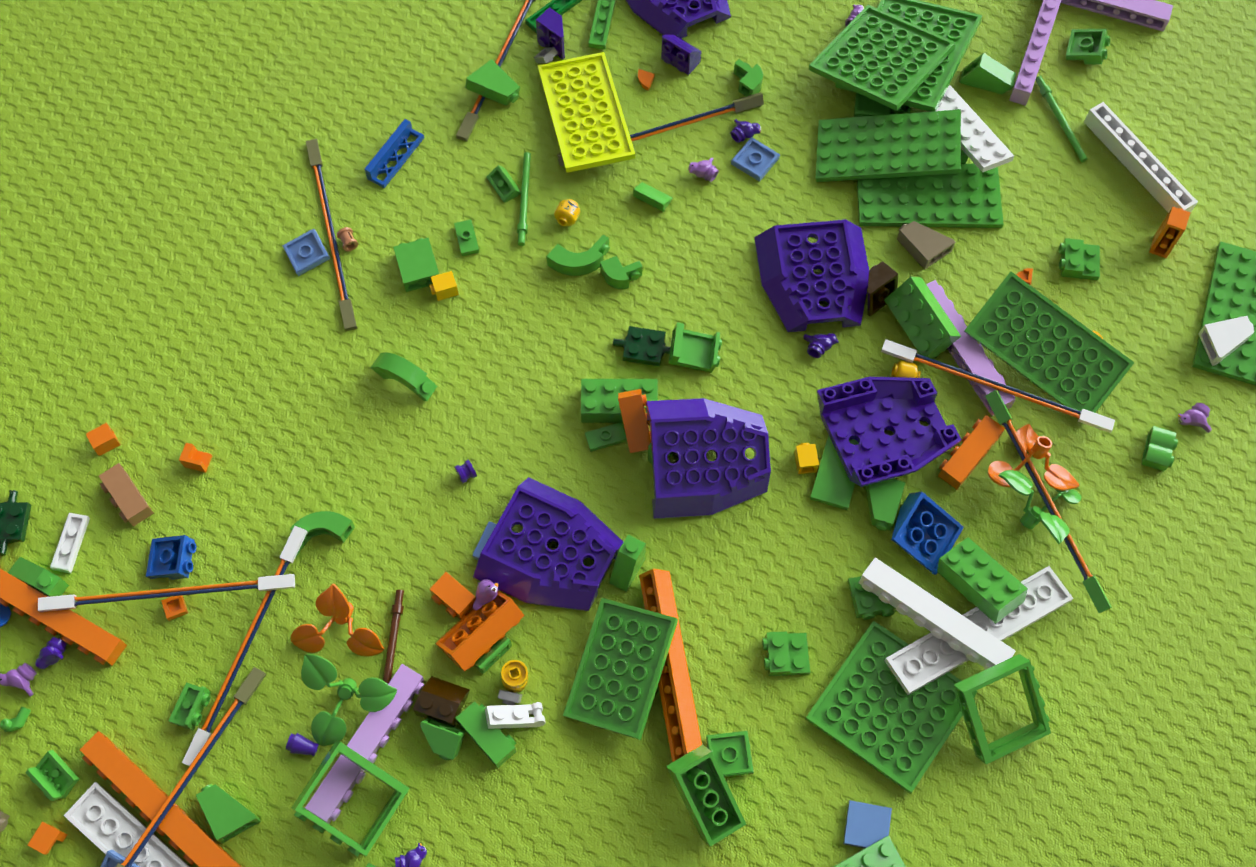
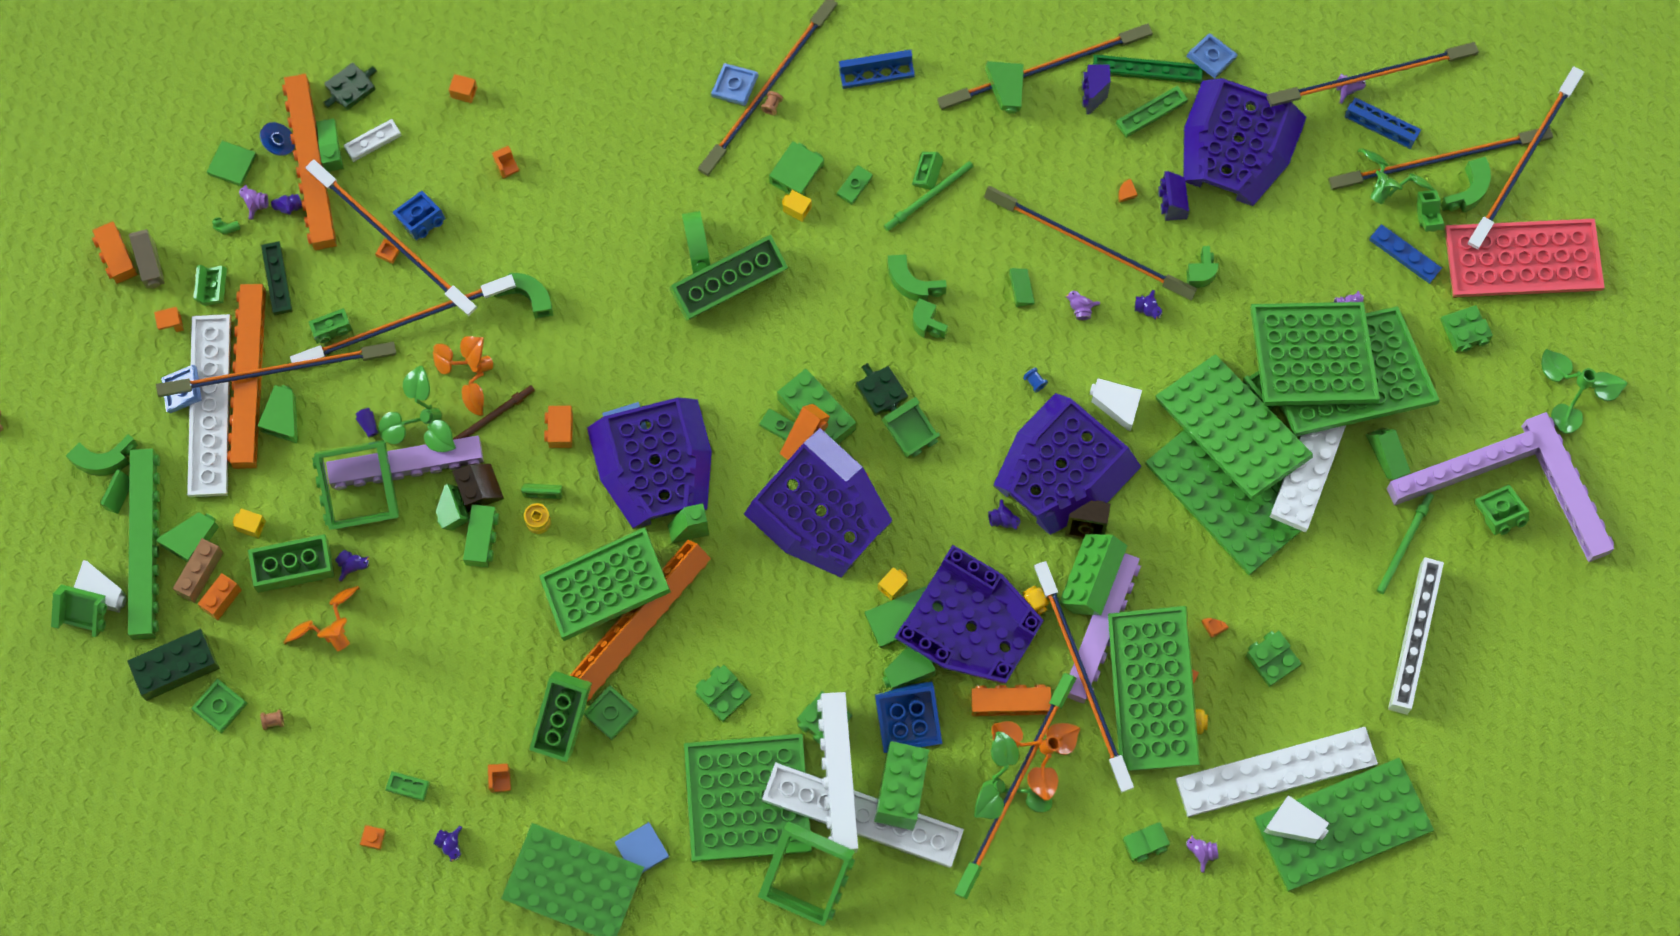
camera: 50 degrees right, 5 degrees up
(104, 716) = (276, 278): none -> dark green plate
(125, 495) = (436, 142): medium nougat brick -> none
(455, 375) = (728, 277): none -> bright green brick
(465, 471) = (661, 352): dark purple wheel -> none
(480, 631) = (551, 466): orange slope -> none
(485, 593) = (579, 446): medium lavender animal -> none
(509, 697) = (520, 529): light grey plate -> none
(514, 716) = (508, 543): white plate -> none
(546, 55) = (1073, 99): light grey plate -> none
(567, 212) = (943, 238): yellow head -> none
(586, 112) = (1046, 173): neon yellow plate -> none
(733, 241) = (1035, 379): none -> blue bush
(755, 159) = (1131, 336): medium blue tile -> none
(799, 204) = (1116, 401): none -> white slope
(924, 243) = (1171, 526): dark tan slope -> none
(1168, 326) = (1276, 771): none -> white plate
(1169, 232) = (1356, 706): orange brick -> none

